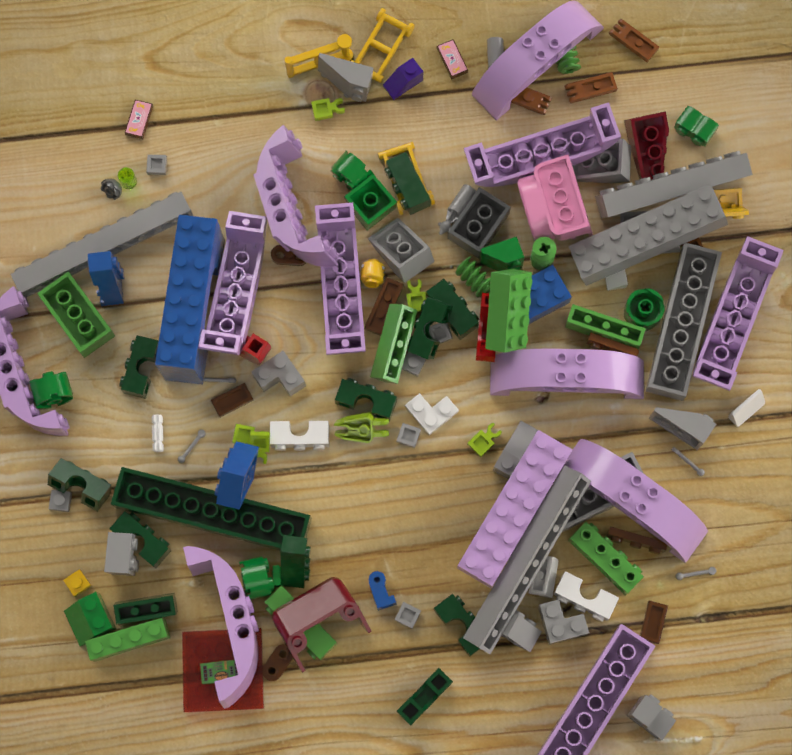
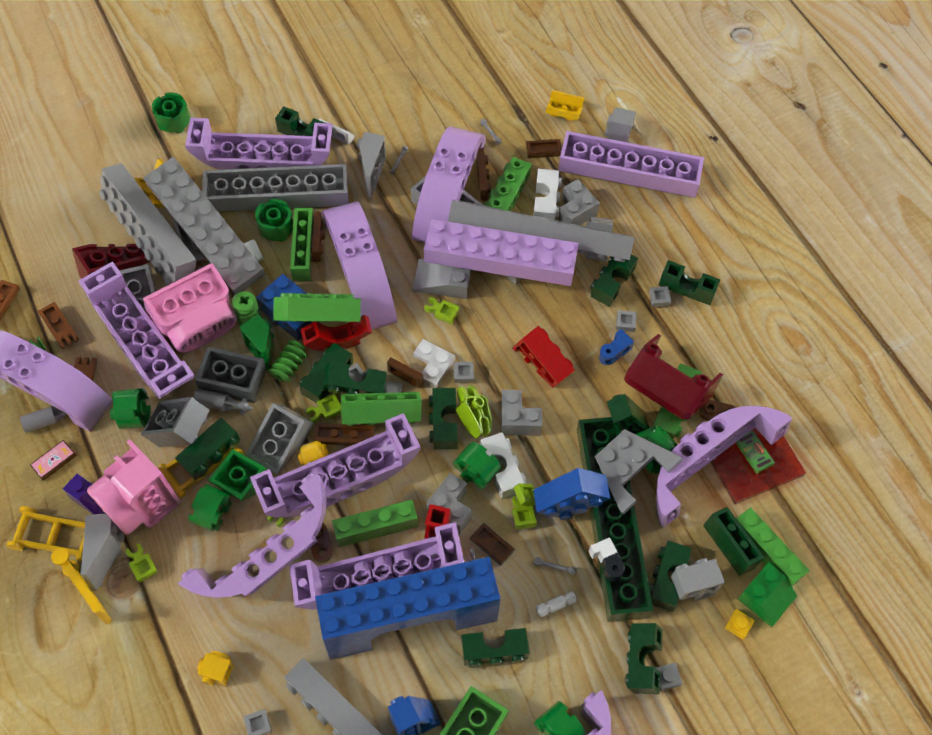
camera: 115 degrees left, 15 degrees down
(165, 482) = (609, 559): none -> leg
(213, 144) = (215, 668): none -> yellow brick
(250, 535) = (625, 458): none -> light grey wing
(286, 305) = (375, 523): none -> bright green brick
(304, 408) = (476, 465): none -> green brick
(340, 463) = (516, 419): none -> light grey brick
(381, 109) = (133, 491): none -> bright pink brick
(394, 515) = (545, 356): none -> red wedge
(423, 662) = (660, 296): none -> light grey plate
(426, 380) = (405, 372): none -> reddish brown tile
(439, 160) = (175, 422): none -> dark grey brick
(474, 128) = (130, 408): none -> green brick
(696, 126) = (79, 229): green brick -> none
(700, 666) = (565, 105): none -> yellow bracket
(757, 371) = (290, 123): none -> dark green arch

